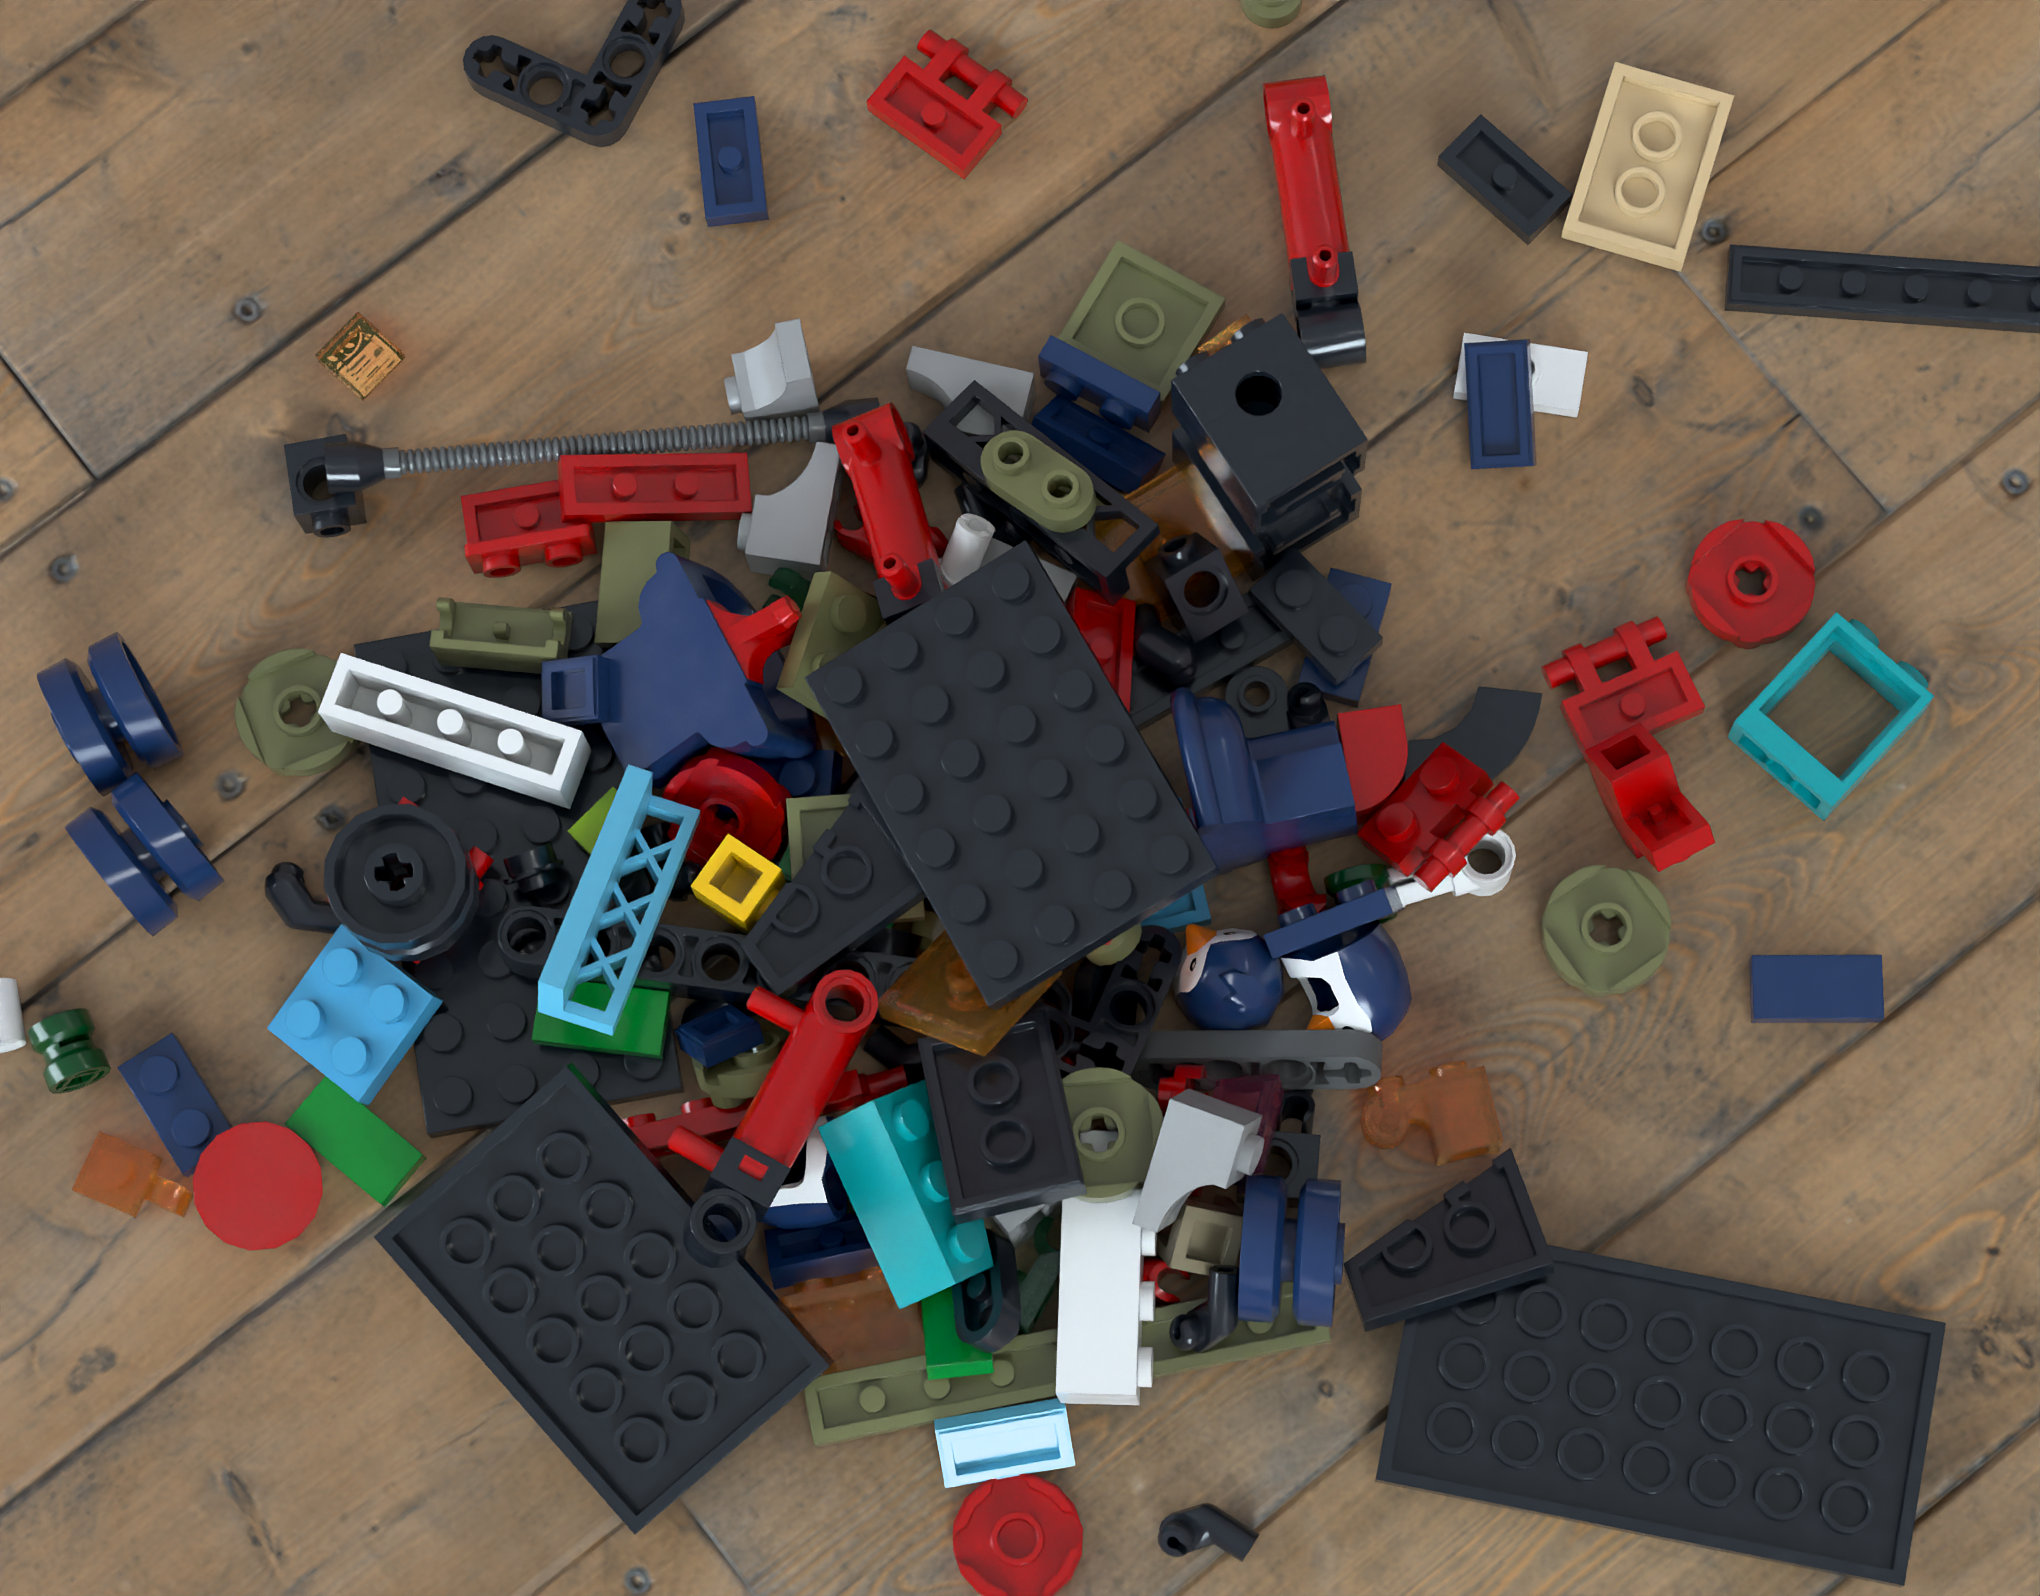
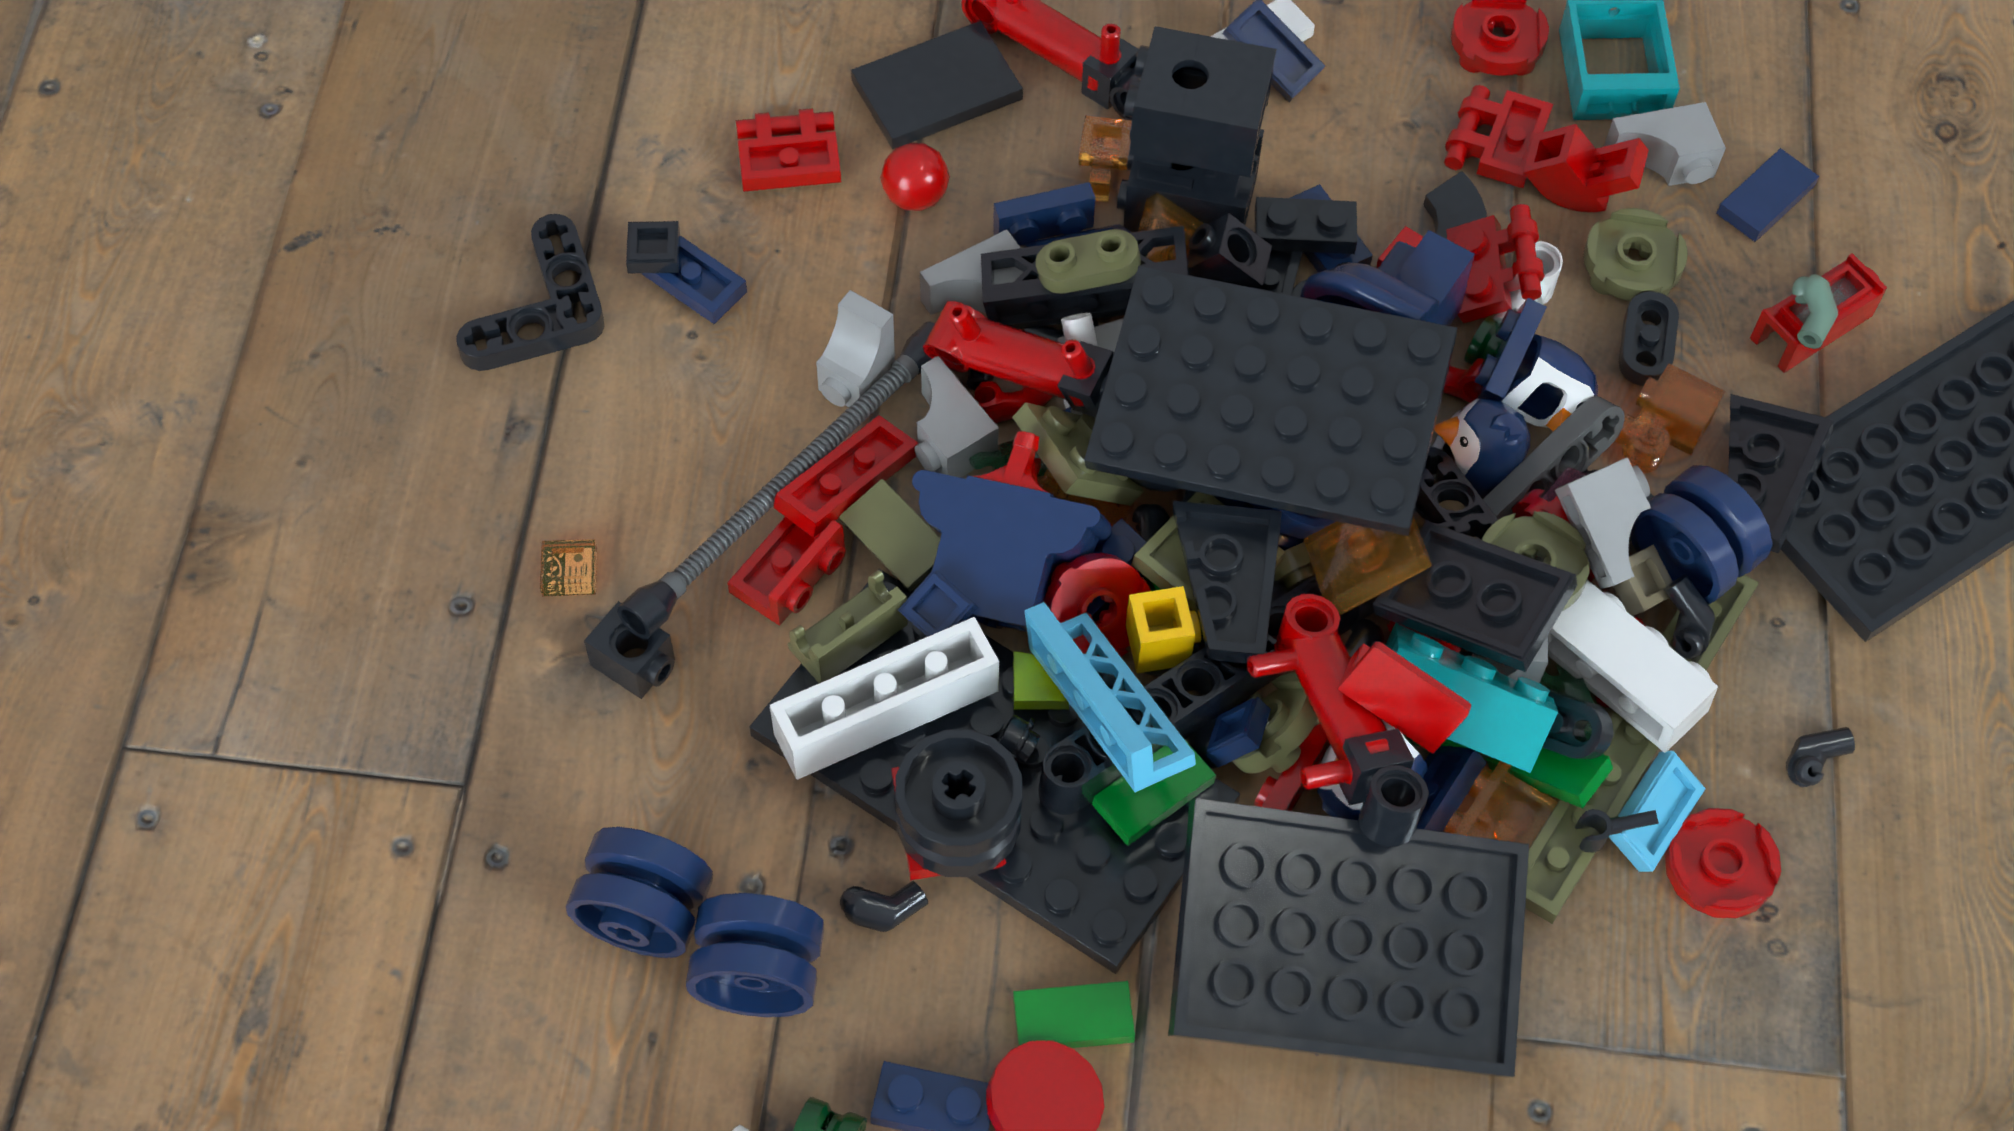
camera: 55 degrees left, 15 degrees down
(268, 698) = (758, 827): olive plate -> none
(354, 1015) = (993, 936): dark azure plate -> none
(715, 104) = (653, 247): none -> black tile
(824, 1143) = (1403, 695): none -> red panel
(938, 1423) = (1609, 826): none -> black hand
(1024, 237) = (915, 176): none -> red piece
(1142, 318) = (1026, 160): olive plate -> none
(1157, 152) = (936, 84): none -> black tile
(1516, 1023) = (1649, 342): none -> black plate
(1682, 1149) = (1822, 307): none -> sand green arm
(1709, 1150) = (1856, 295): none -> red window
(1778, 849) = (1680, 141): none -> light grey arch

